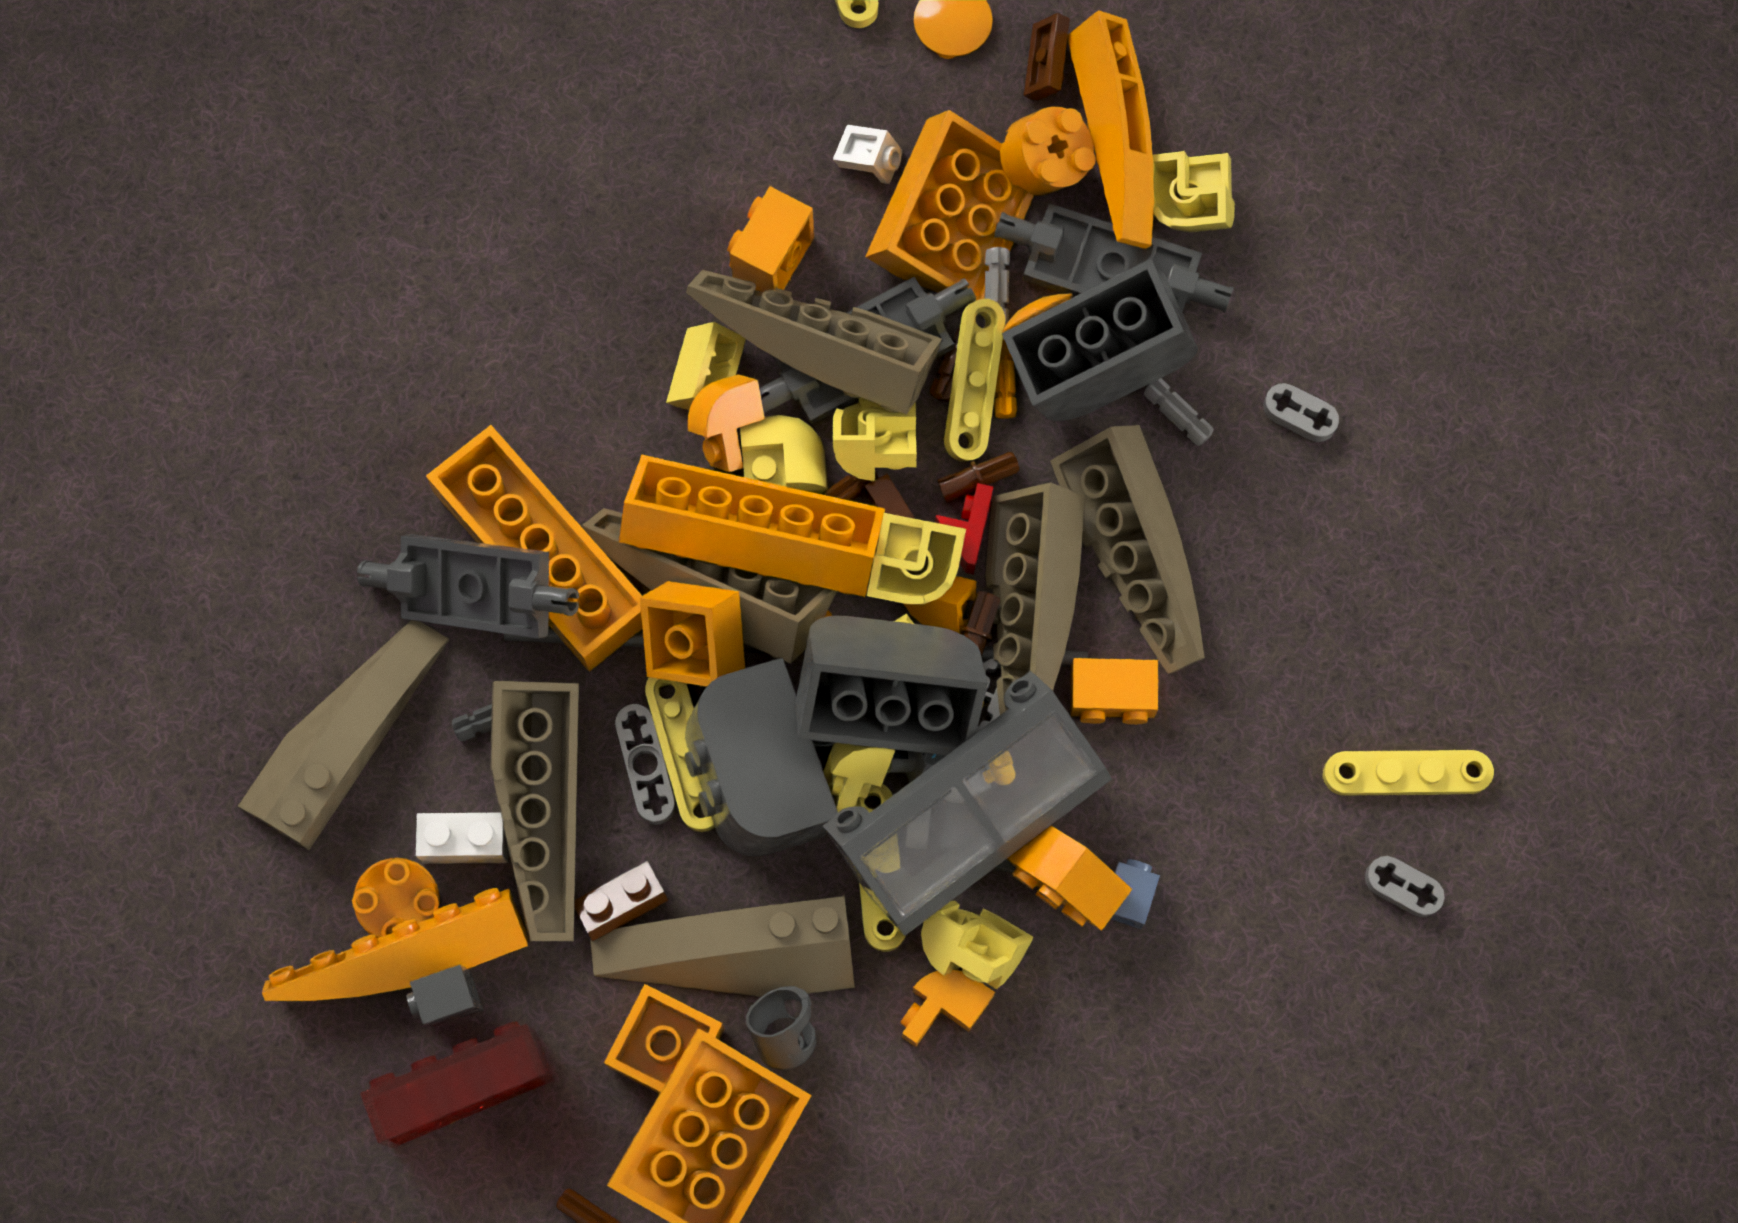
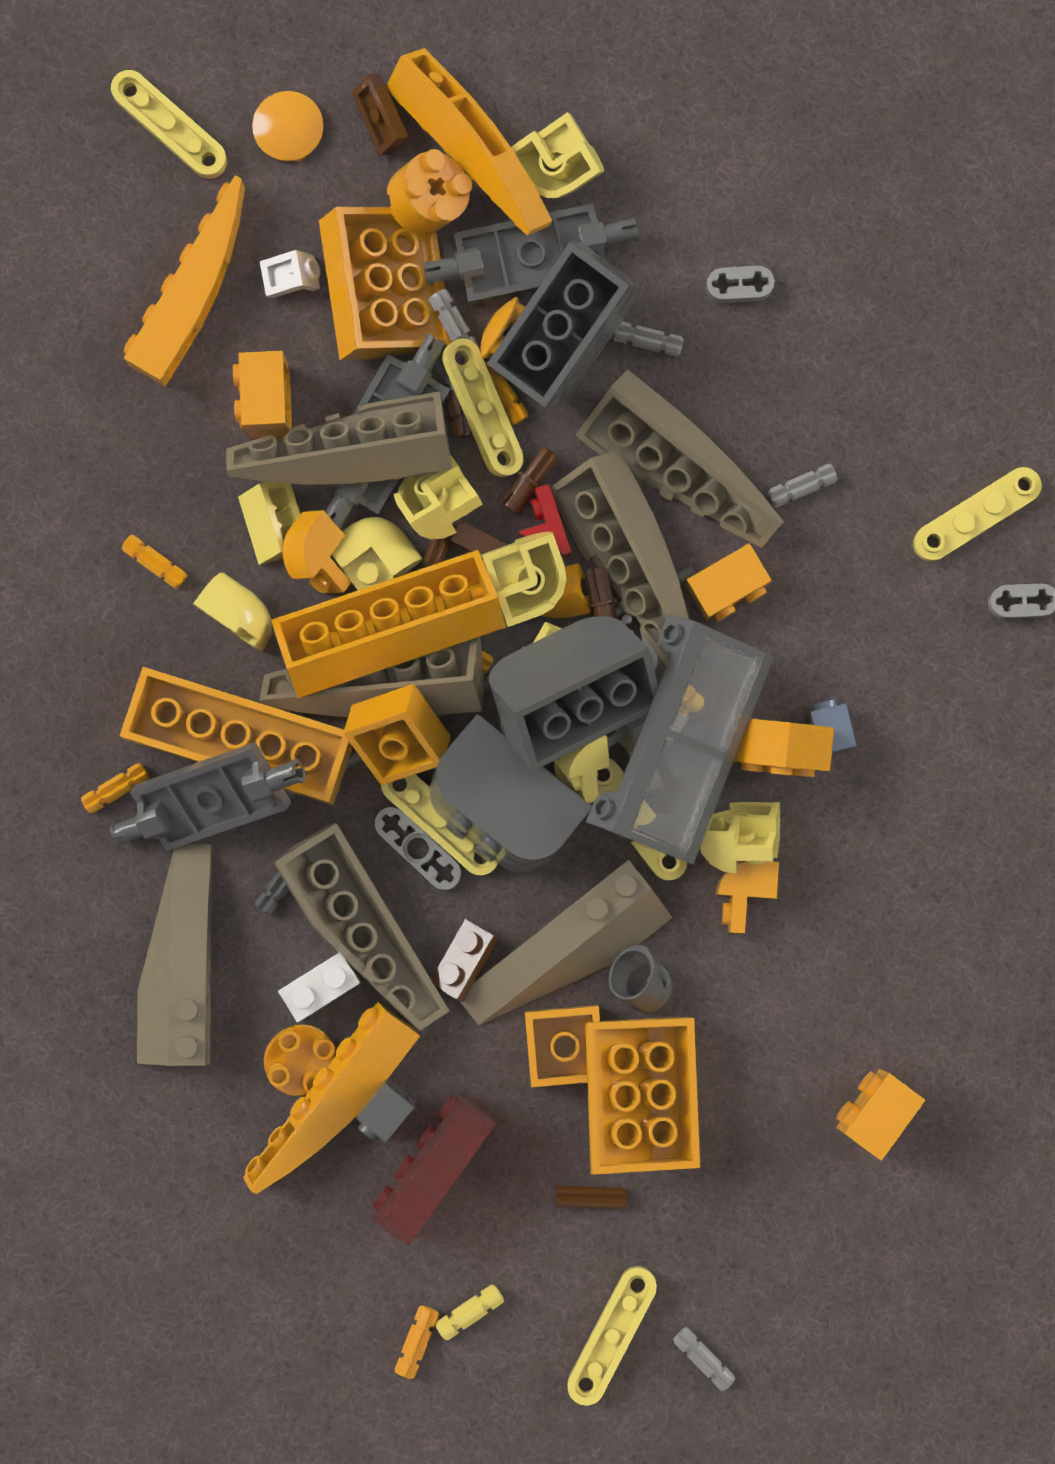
camera: 30 degrees left, 10 degrees up
(389, 528) = (115, 788): none -> light orange axle
(568, 340) = (154, 561): none -> light orange axle
(615, 427) = (236, 610): none -> light yellow brick
(762, 114) = (189, 292): none -> light orange slope
(1246, 640) = (802, 485): none -> light grey axle

